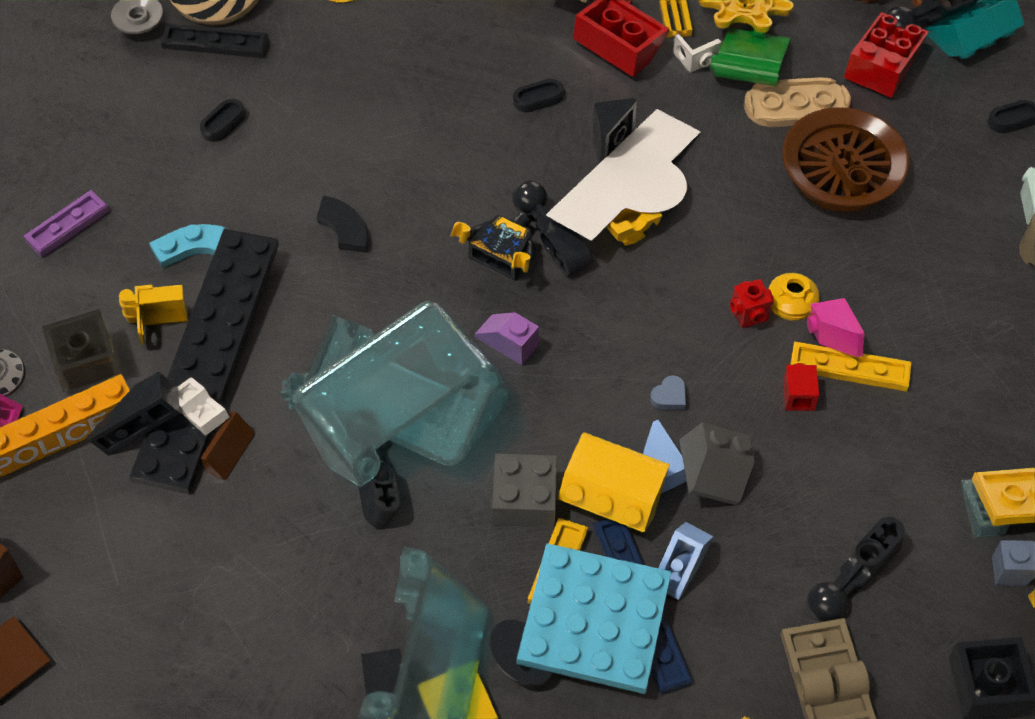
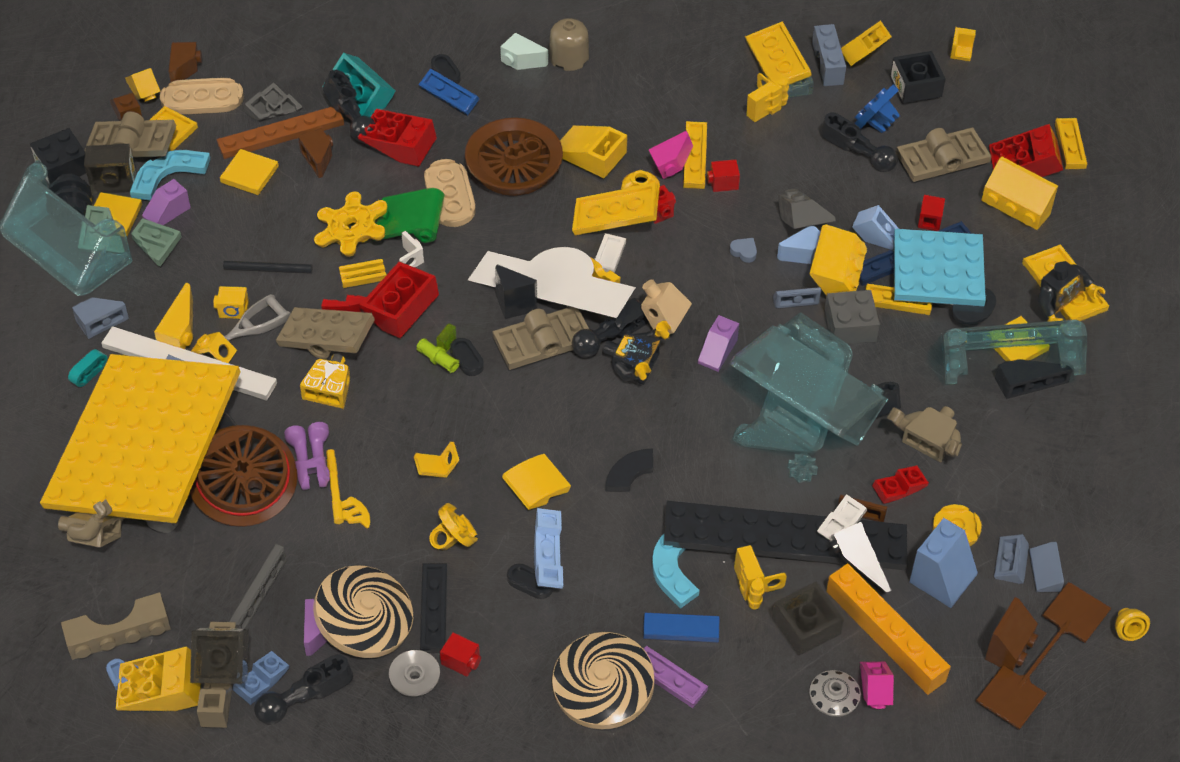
camera: 100 degrees left, 5 degrees down
(77, 163) = (603, 680): none -> dish
(78, 640) = (1047, 568): none -> sand blue slope
(103, 504) = (944, 564): none -> medium blue slope
(106, 604) = (1012, 559): none -> sand blue slope
(121, 242) = (681, 627): none -> blue tile
(146, 50) = (460, 654): none -> red brick
(173, 551) = (961, 517): none -> yellow tile
(246, 134) = (547, 548): none -> light blue slope
(251, 497) = (903, 484): none -> red slope
(295, 54) = (456, 528): none -> yellow tile
(313, 547) = (929, 431): none -> dark tan torso
(346, 136) = (536, 481): none -> yellow slope
(389, 48) = (437, 465): none -> yellow bracket
(540, 66) = (437, 355): none -> lime pin
(549, 155) = (539, 336): none -> dark tan plate
(560, 71) = (446, 337): none -> clear neon green tile
(568, 276) = (664, 303): none -> tan torso
(577, 423) = (797, 297): none -> sand blue slope
(679, 247) = (610, 252): none -> white tile
(709, 638) = (931, 213): none -> red brick
(739, 249) = (616, 209): none -> yellow tile
(855, 245) = (594, 148): none -> yellow slope
(912, 601) = (879, 111): none -> blue plate
(947, 461) = (767, 97): none -> yellow piece
(969, 112) = (449, 91): none -> blue tile

